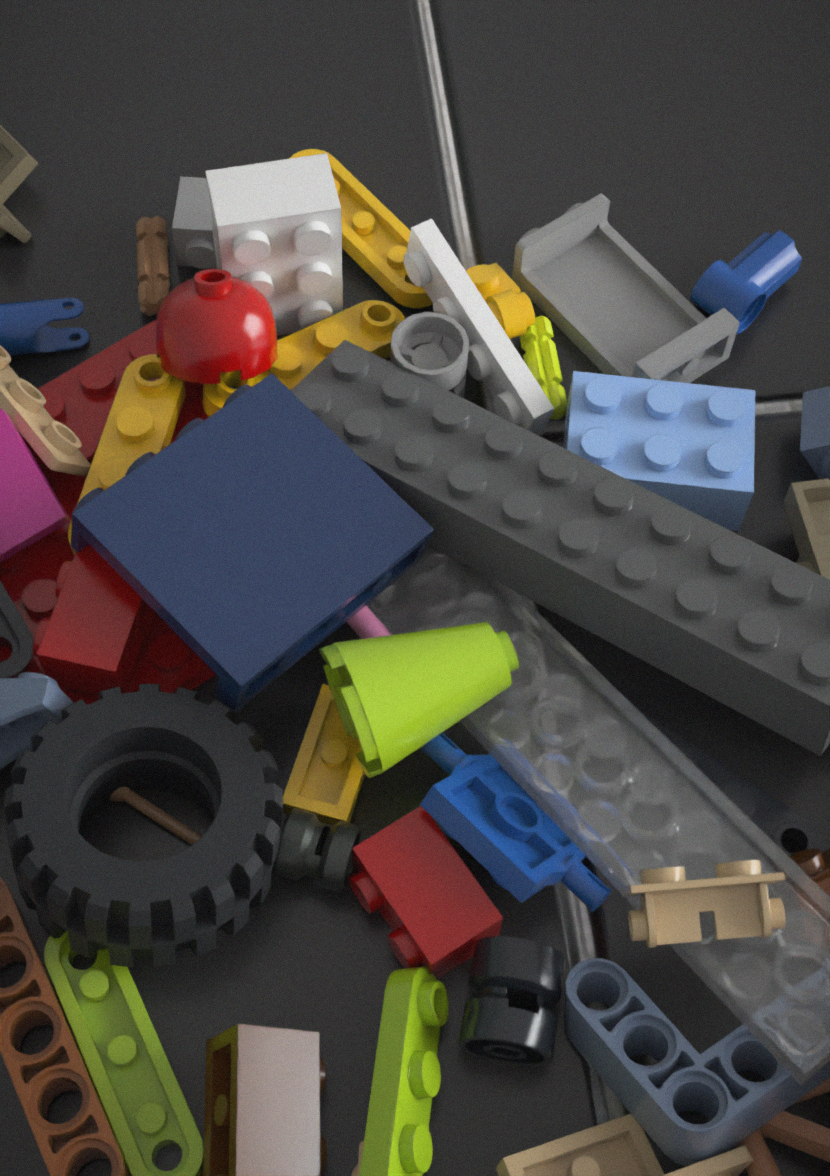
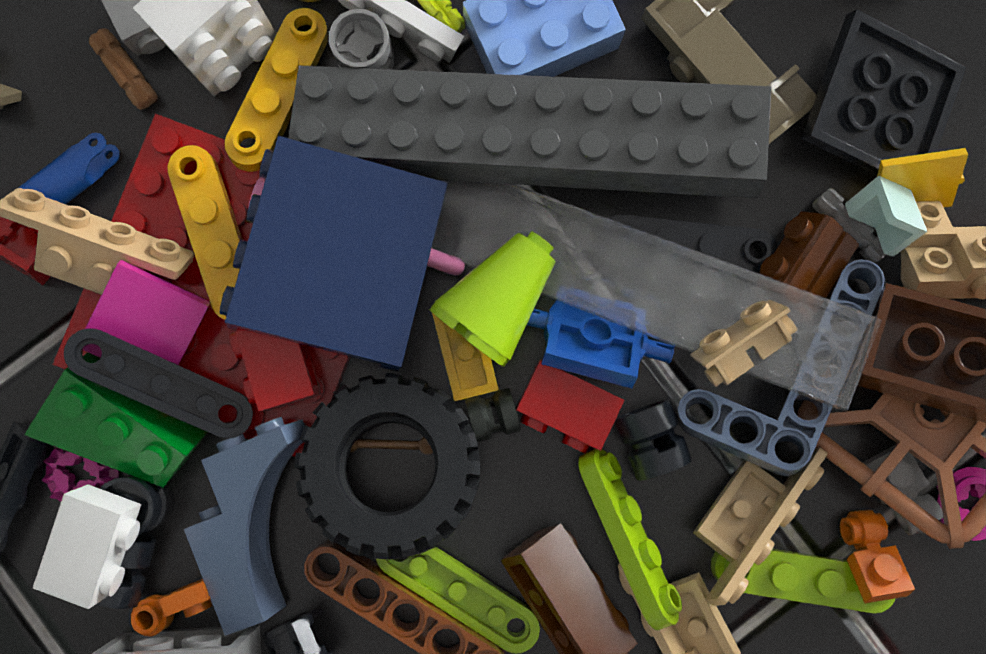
camera: 35 degrees left, 25 degrees up
(215, 328) = (213, 115): red cylinder -> none

